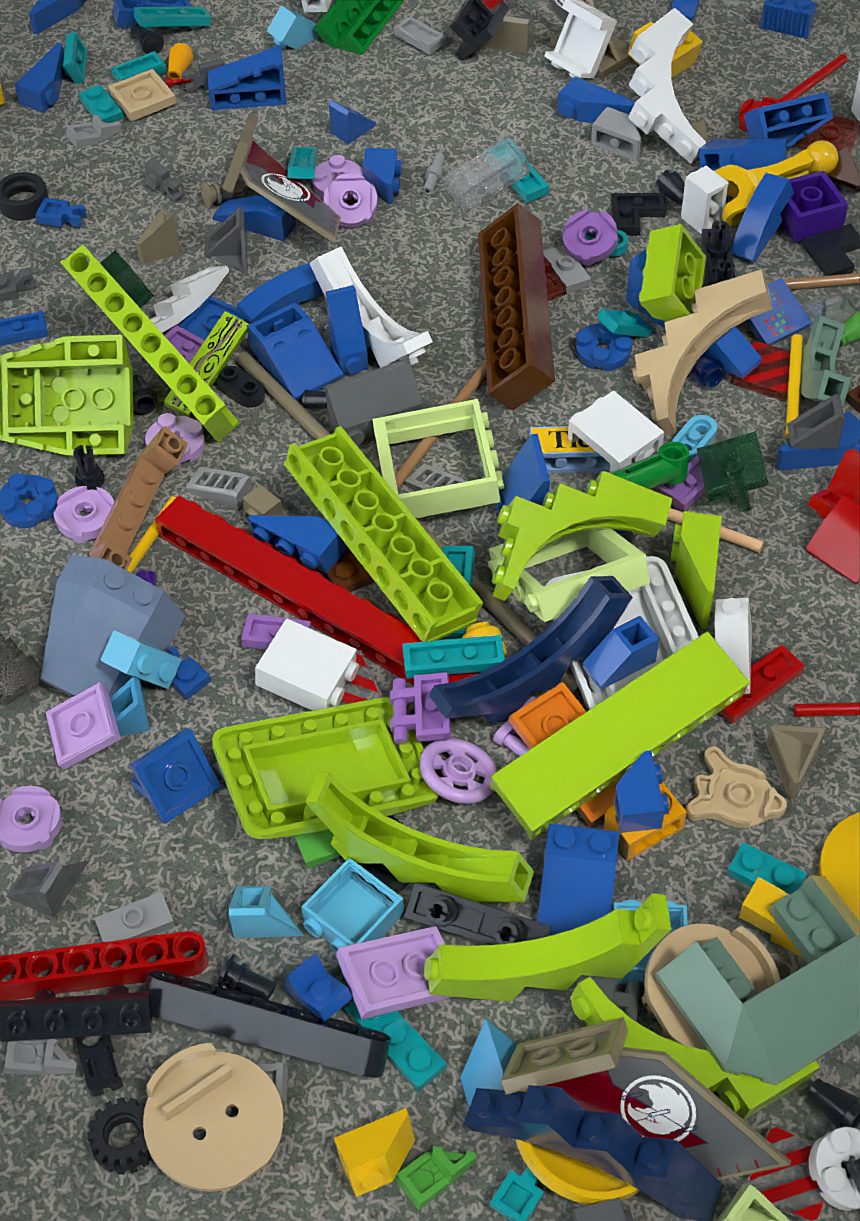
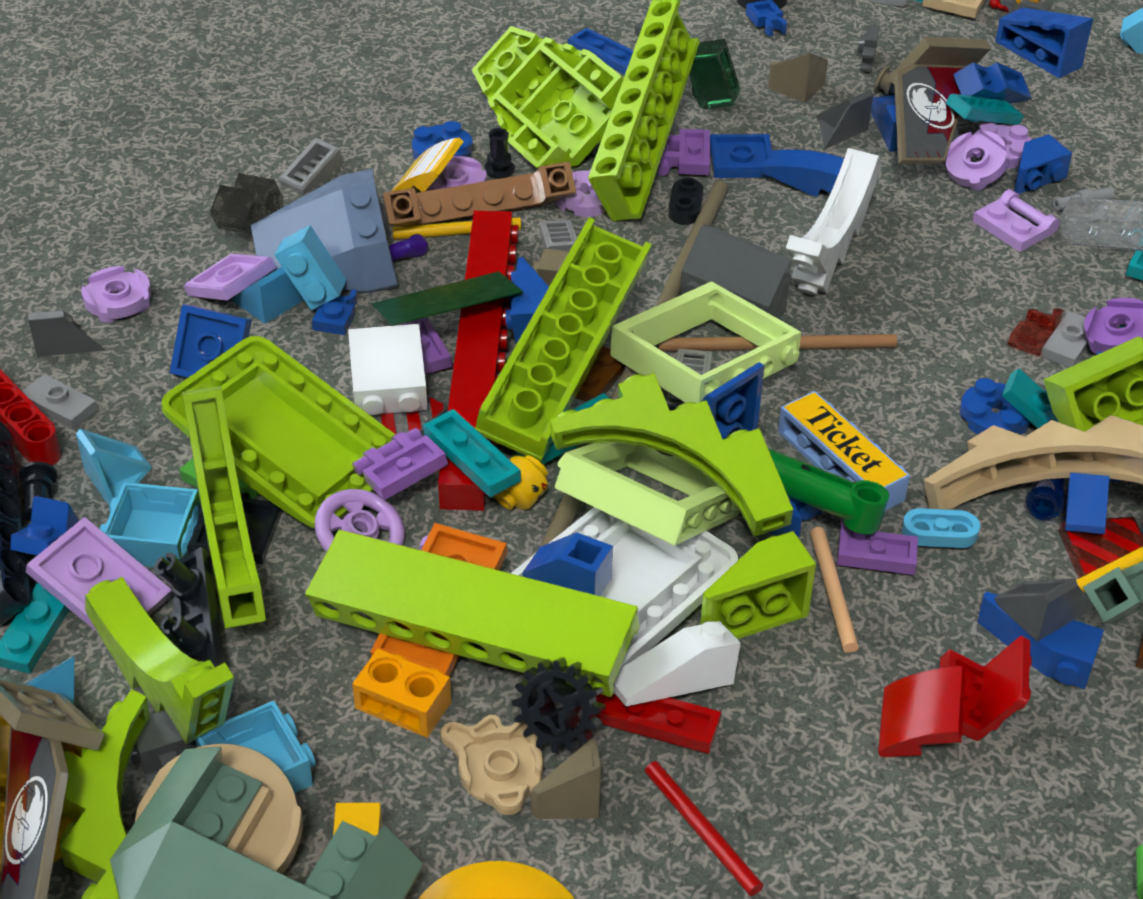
camera: 55 degrees right, 10 degrees down
(65, 522) = (429, 165): none -> yellow slope
(187, 296) = (754, 121): white slope -> none
(213, 355) = (699, 160): lime tile -> none
(261, 588) = (446, 298): none -> dark green piece
(280, 143) = (992, 82): none -> blue slope
(293, 350) = (754, 201): blue slope -> none
(346, 330) = (797, 208): blue slope -> none
(348, 123) = (1079, 117): blue slope -> none
(425, 228) = (1011, 227): none -> lavender plate
(515, 308) = (959, 315): reddish brown brick -> none
(543, 661) = (505, 512): dark blue arch -> none
(577, 876) = (297, 666): blue slope -> none
(616, 431) = (856, 441): white panel -> none
(638, 796) = (406, 655): blue slope -> none
(728, 739) = (563, 720): none -> black gear
(733, 469) = (914, 568): clear green bracket -> none
(753, 863) = (417, 823): teal plate -> none

